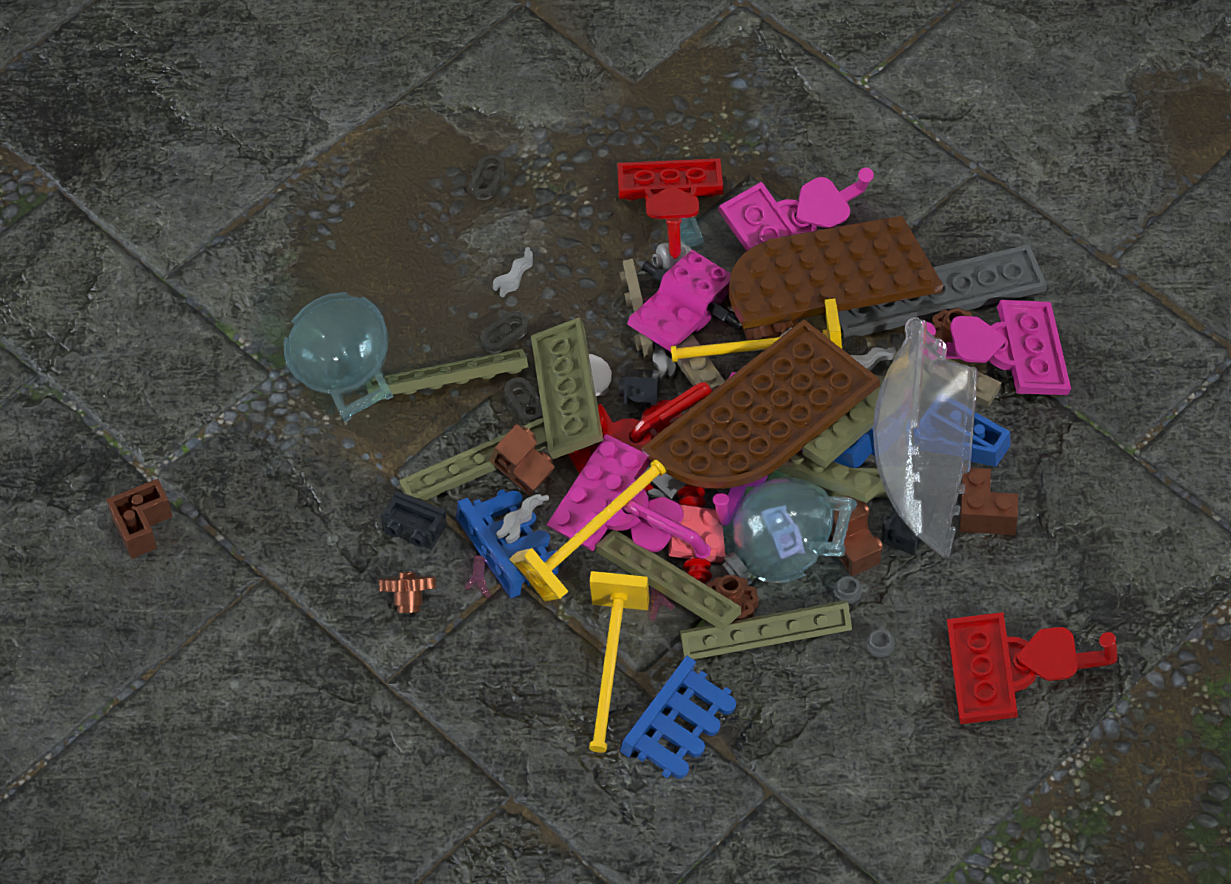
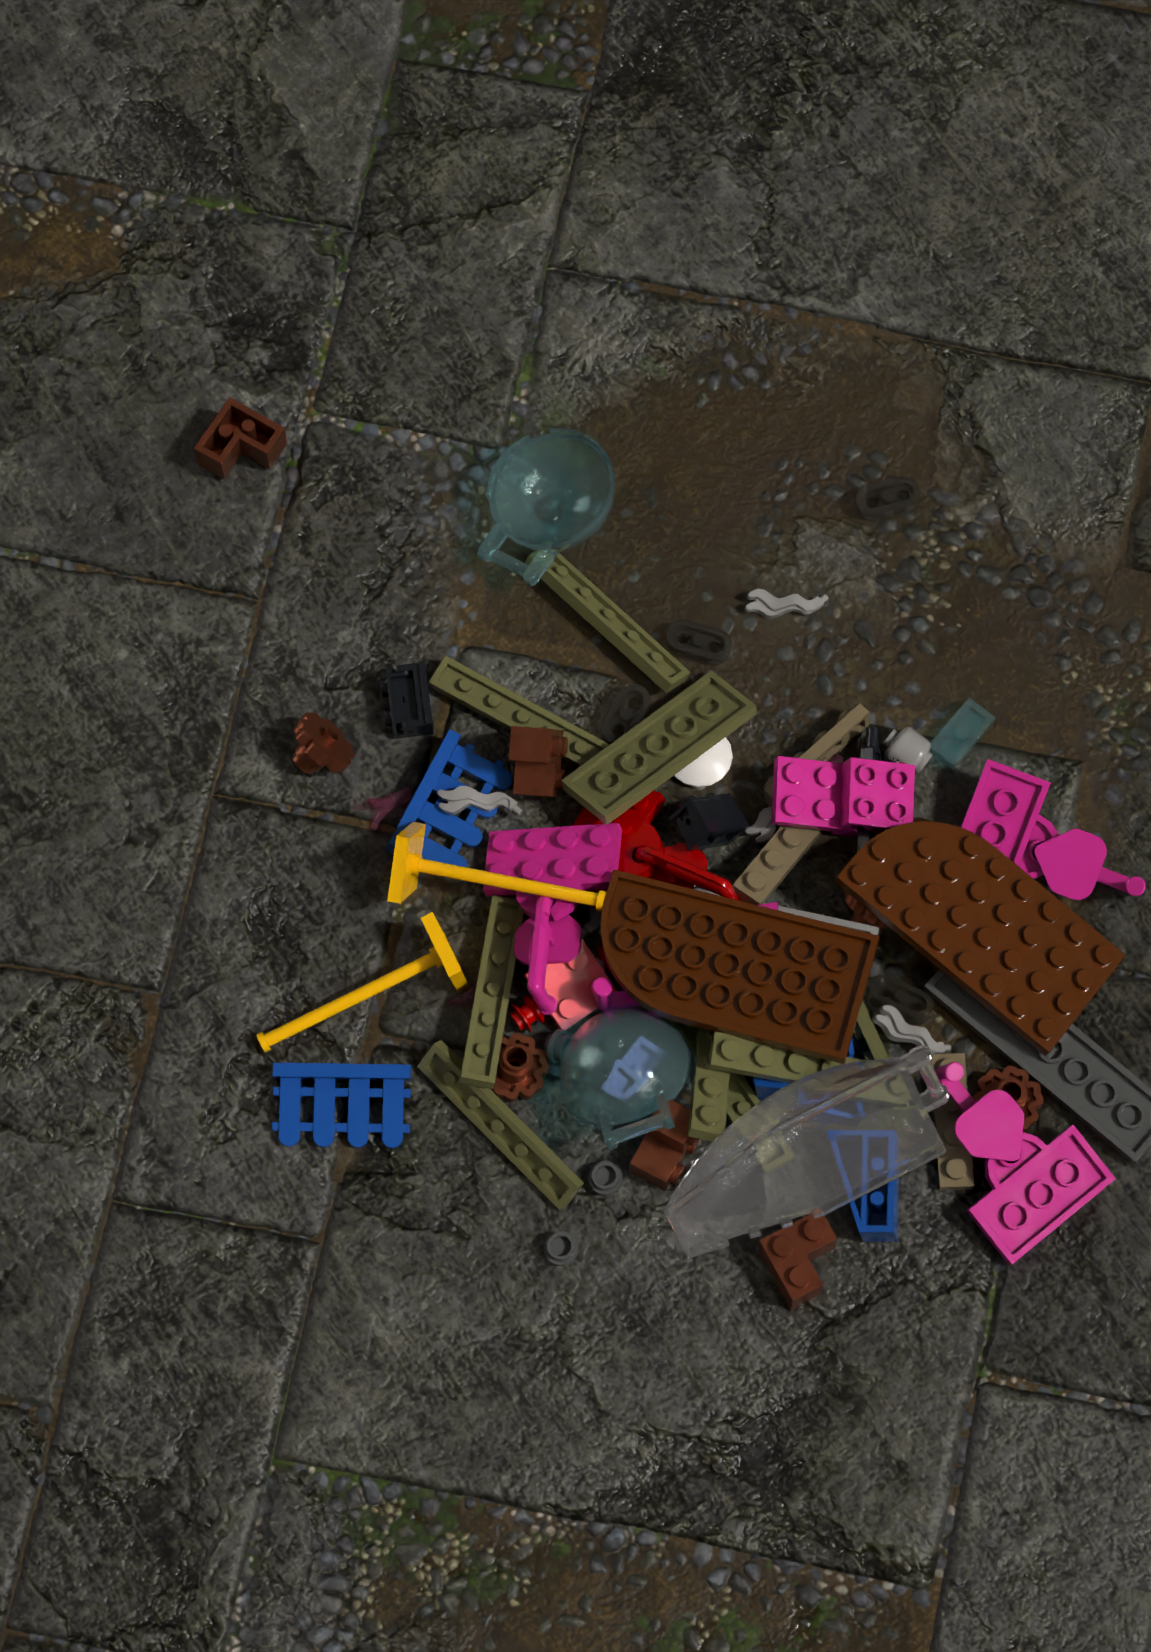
camera: 55 degrees right, 15 degrees up
(671, 190) = (993, 691): red plate -> none
(832, 332) = (888, 978): yellow tile -> none
(994, 666) = (604, 1381): red plate -> none

